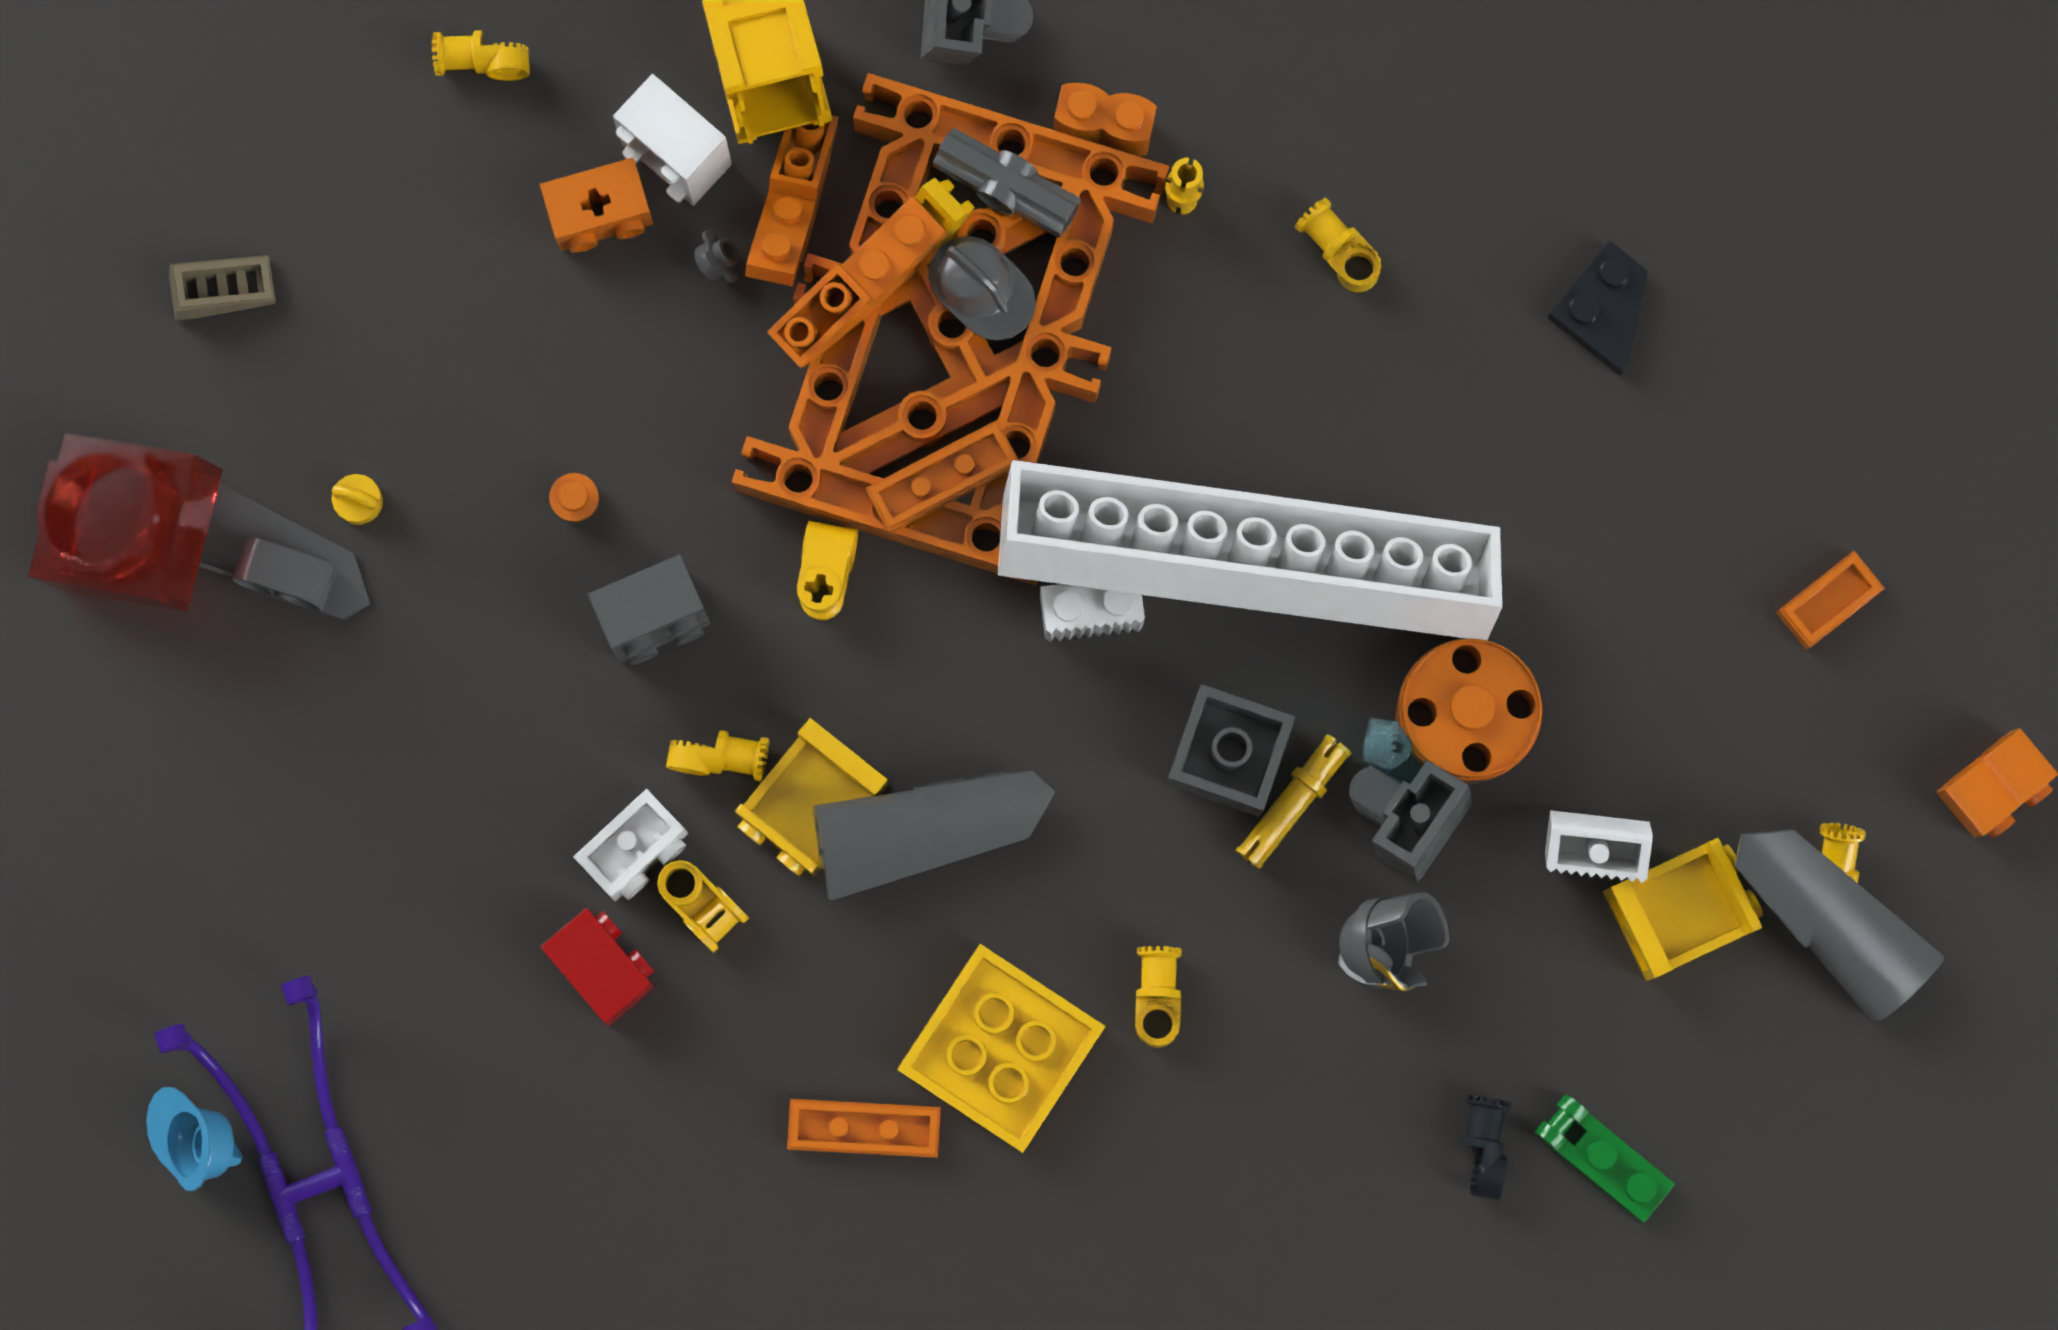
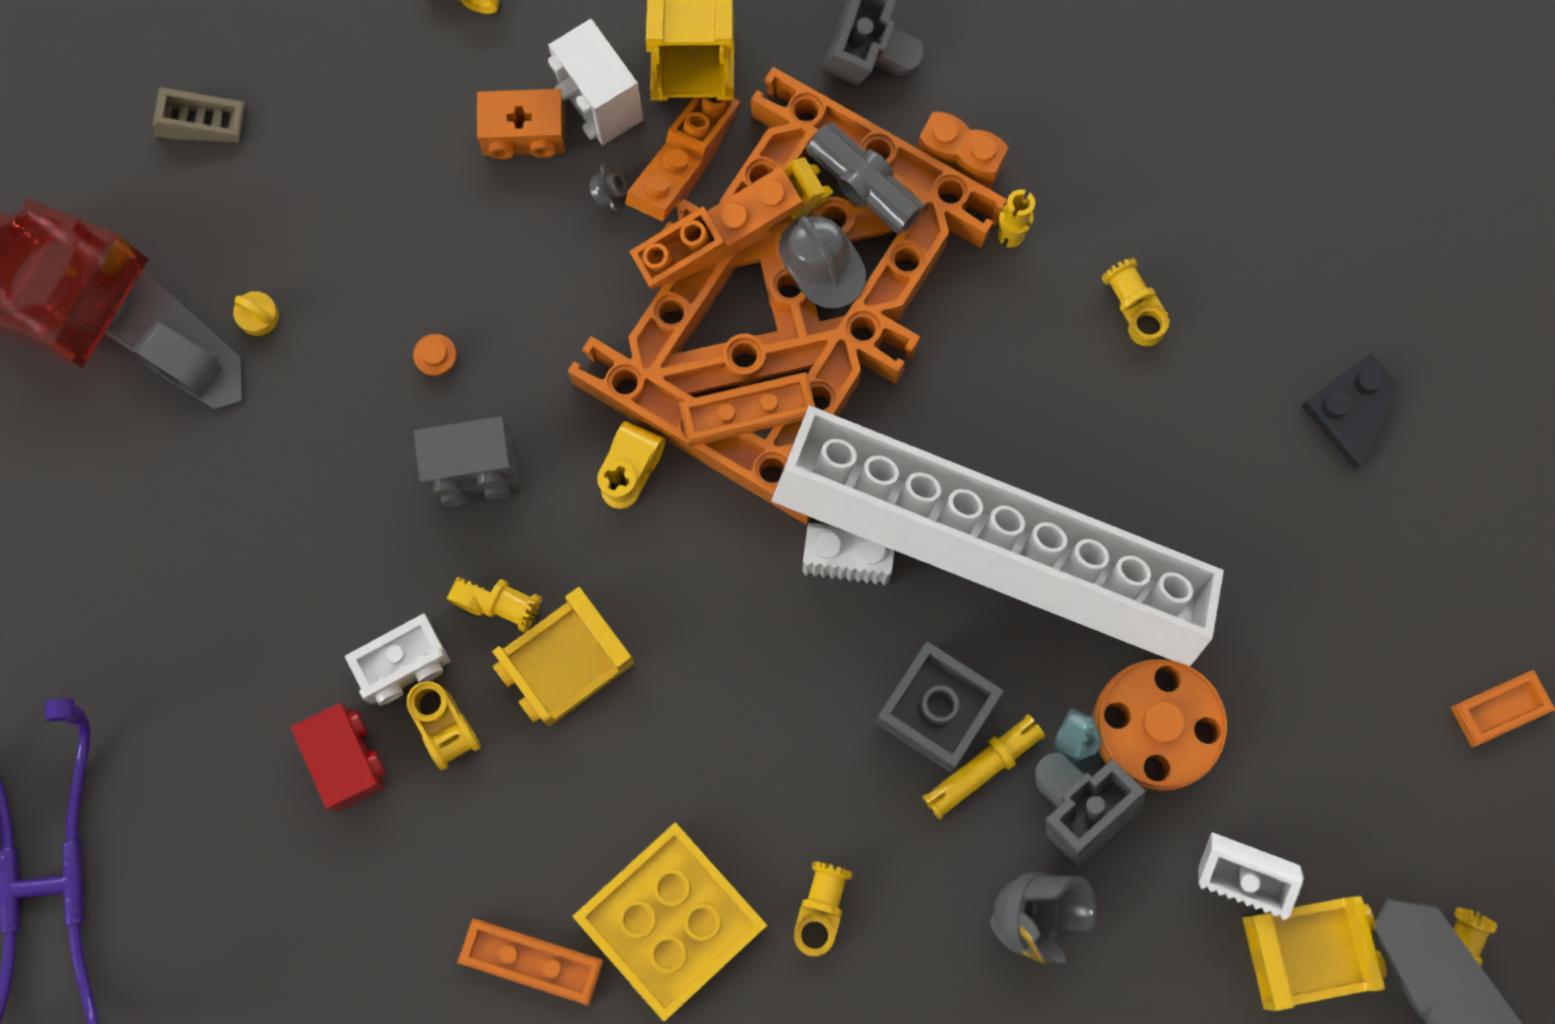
camera: 20 degrees right, 5 degrees down
(924, 828) = (653, 708): dark grey panel -> none

